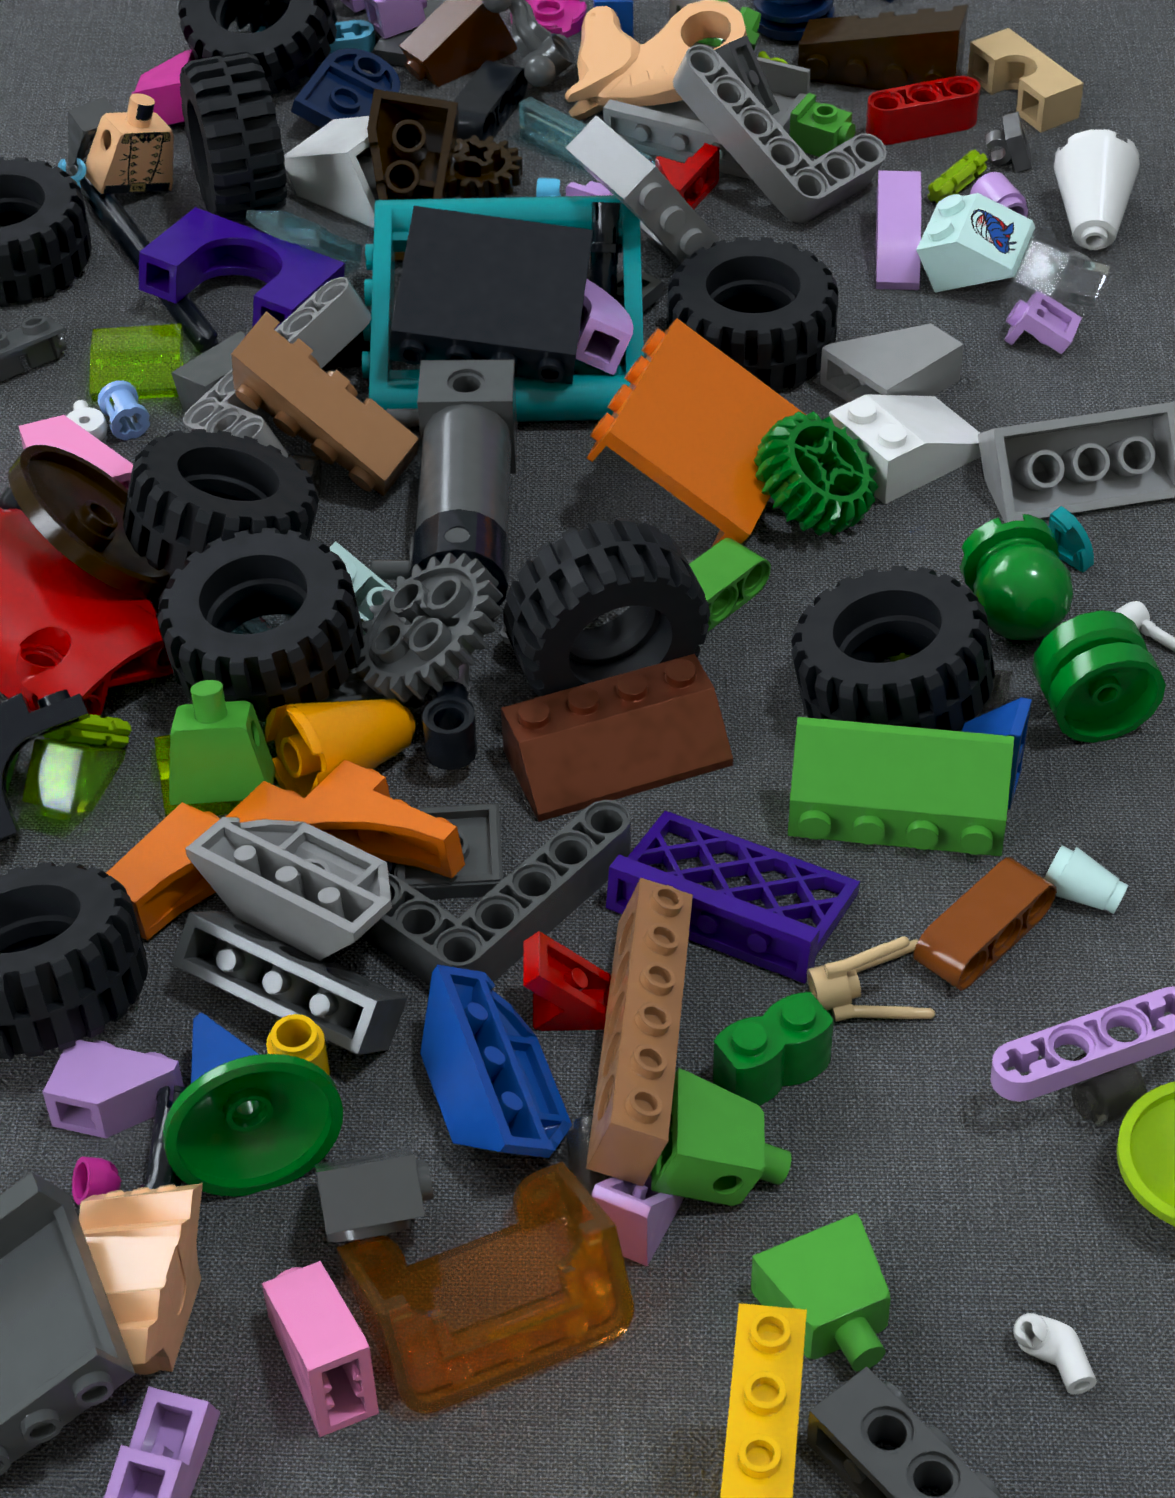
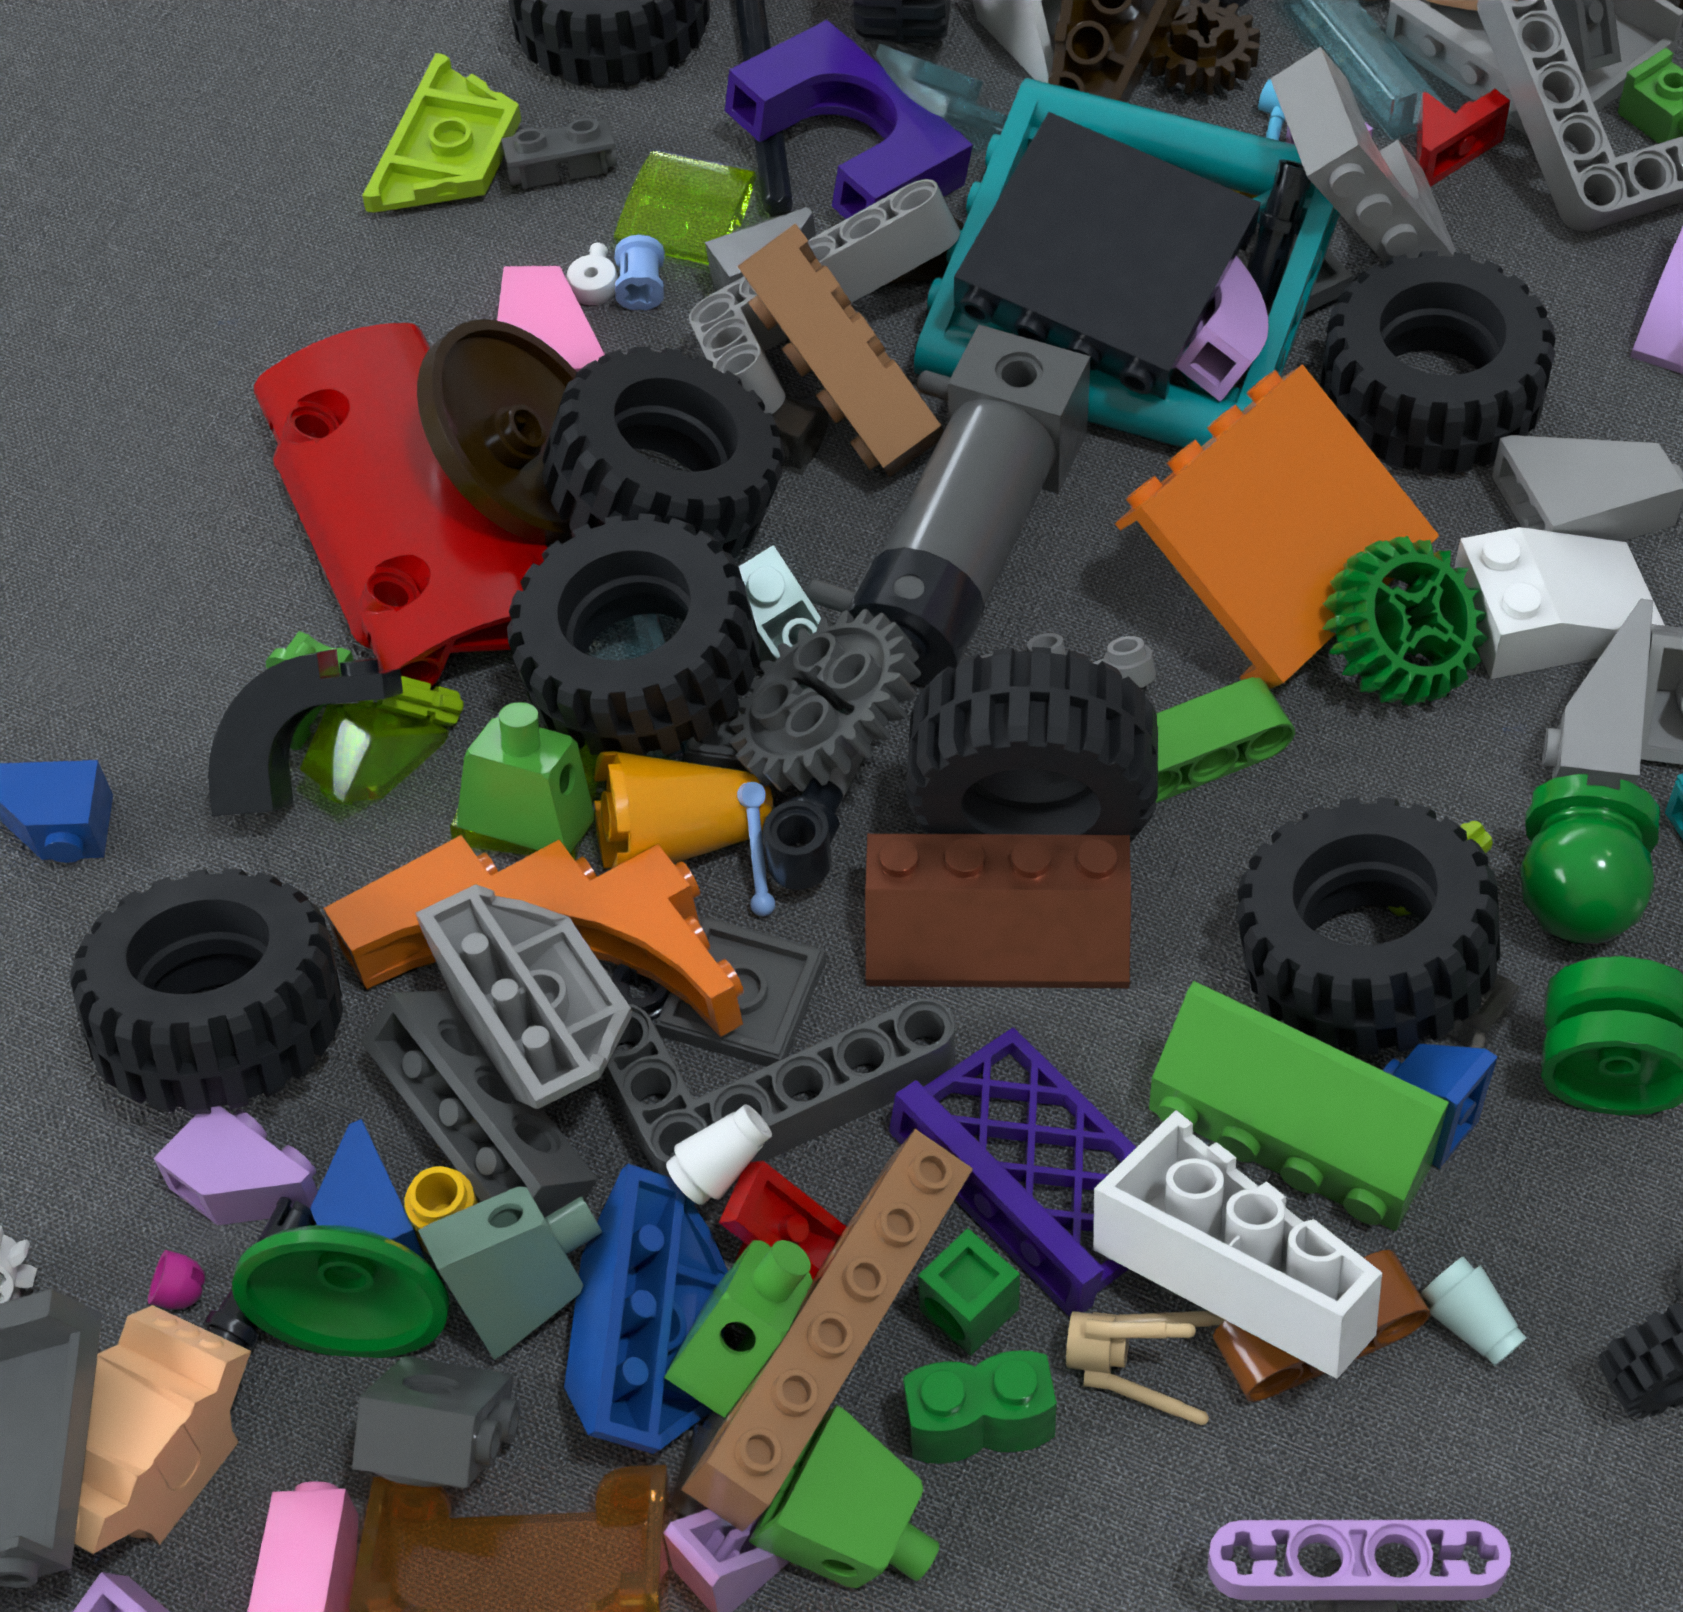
camera: 25 degrees right, 10 degrees up
(377, 1066) = (510, 1262): none -> sand green torso
(399, 710) = (752, 796): none -> light blue hinge
(502, 938) = (718, 1154): none -> white cone
(577, 1040) = (758, 1296): none -> bright green torso
(728, 977) = (969, 1291): none -> green brick
(913, 878) = (1235, 1248): none -> white wedge
(982, 485) = (1605, 716): none -> light grey slope

